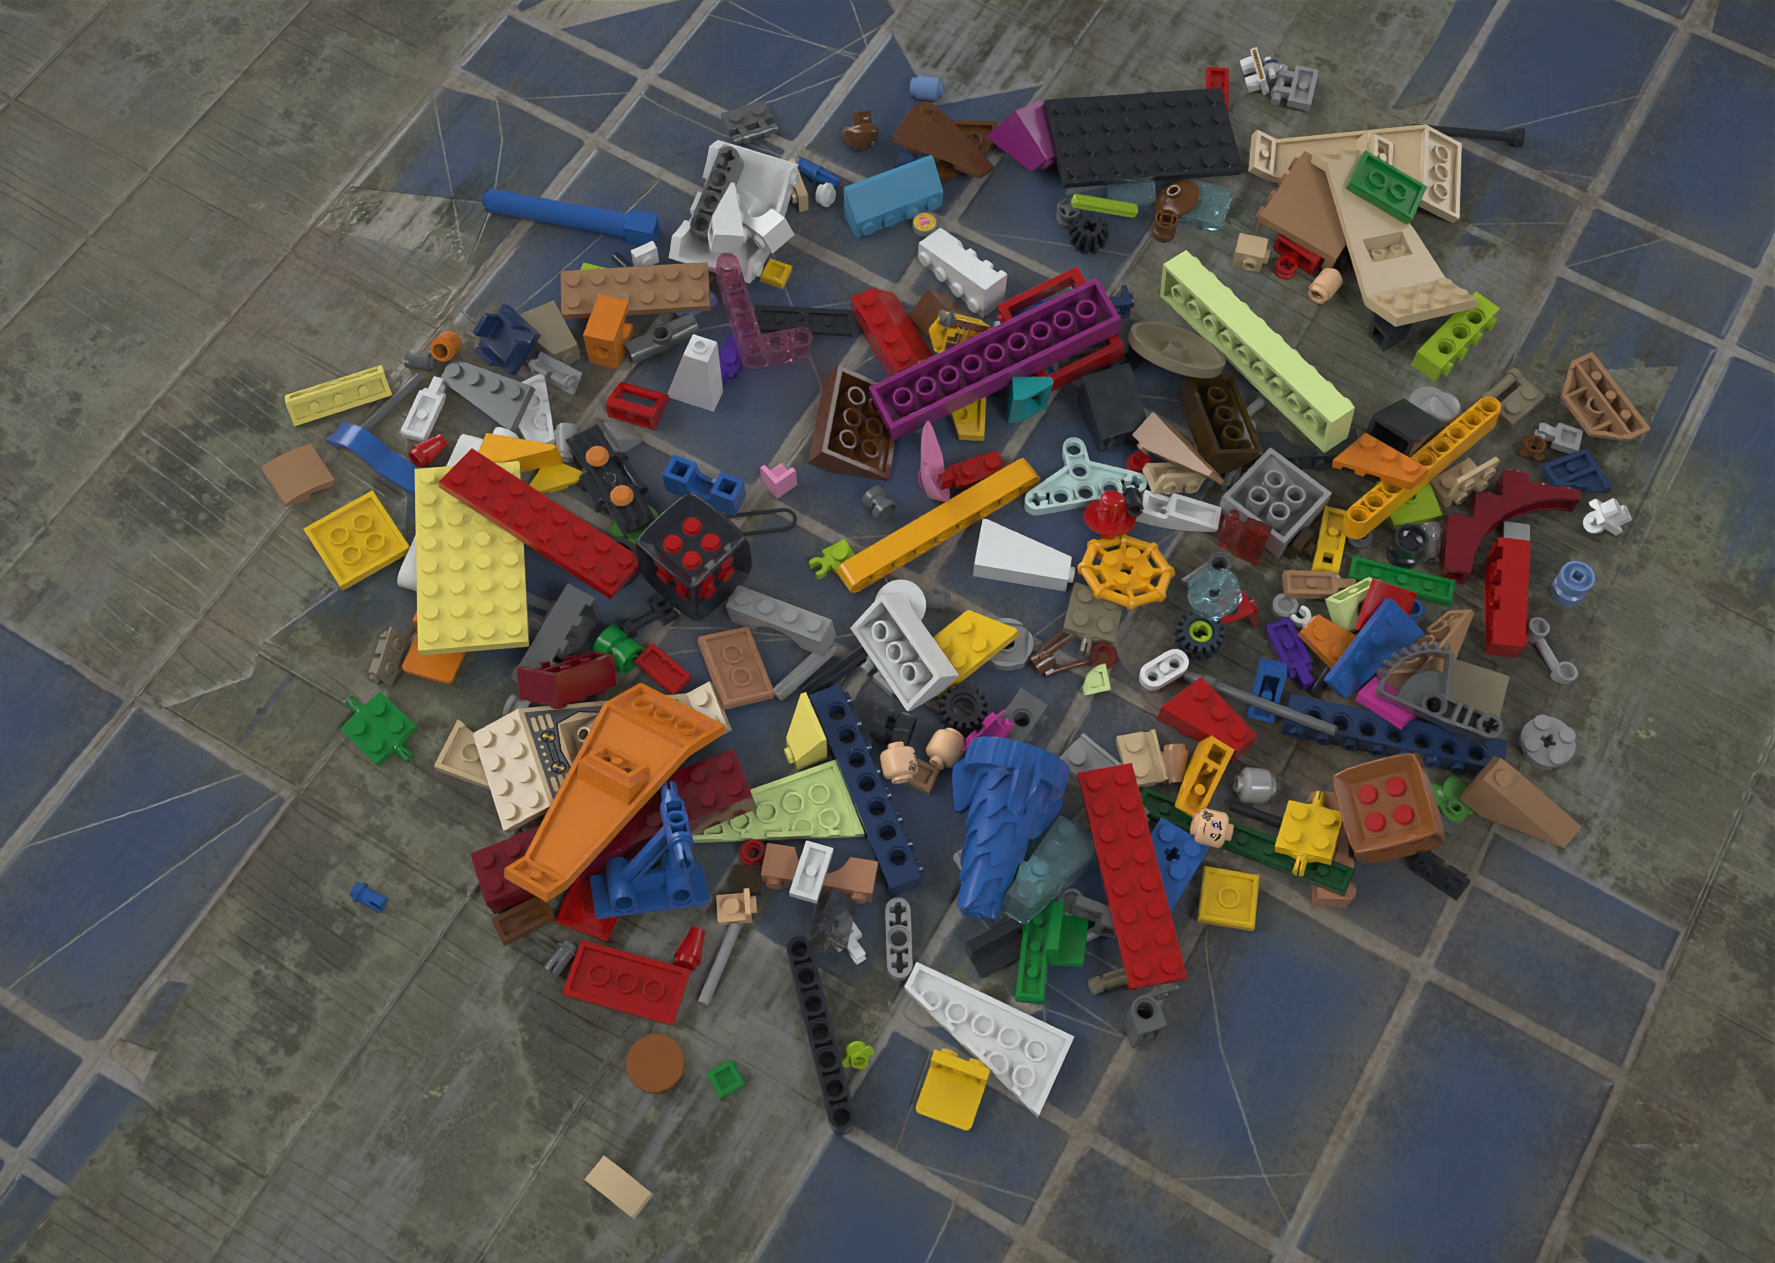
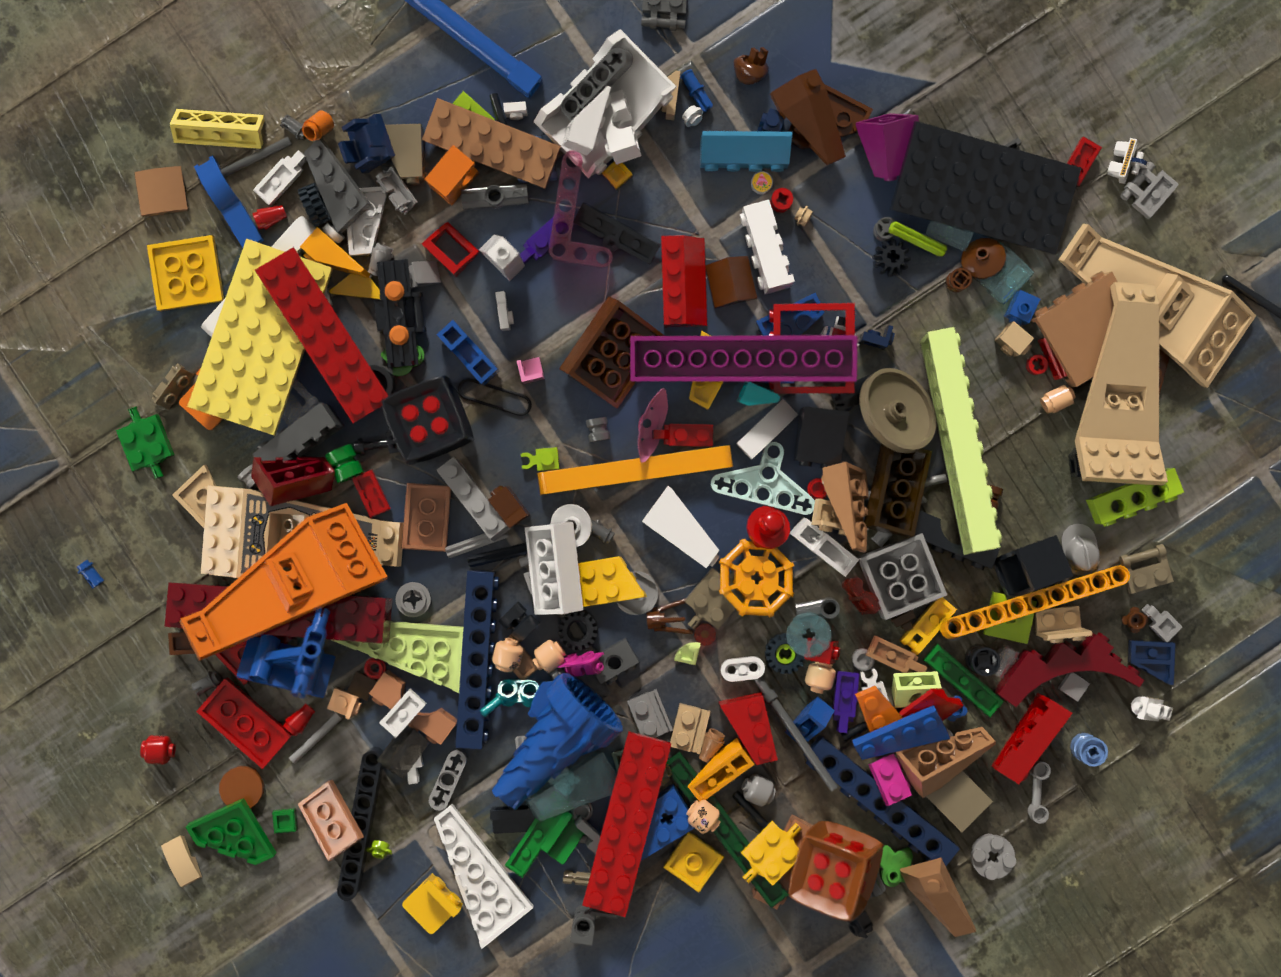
camera: 30 degrees right, 25 degrees up
(474, 414) = (314, 204): none -> black bush
(533, 1061) = (157, 749): none -> red head
(669, 1119) = (233, 833): none -> green plate
(725, 439) = (505, 316): none -> white plate
(765, 748) = (406, 607): none -> light grey gear
(782, 1043) = (330, 820): none -> nougat tile
(805, 737) = (449, 601): light yellow slope -> none
(826, 604) = (508, 505): none -> reddish brown hips
(924, 800) = (519, 689): none -> teal beam
(926, 88) = (831, 44): medium blue brick -> none
(954, 329) = (733, 315): torso -> none
(957, 223) = (777, 202): none -> red wheel
(981, 234) = (803, 216): none -> tan plate
(1053, 432) = (767, 429): none -> white slope
(1133, 501) = (794, 518): black pin -> none
(1239, 220) = (1022, 308): none -> blue brick
(1250, 639) = (820, 677): none -> light nougat head
(1378, 459) = (1000, 588): orange wing -> none
(1386, 187) = (1157, 343): green tile -> none
(1452, 714) = (932, 833): dark grey arm -> none
(1600, 402) = (1209, 614): medium nougat wedge -> none

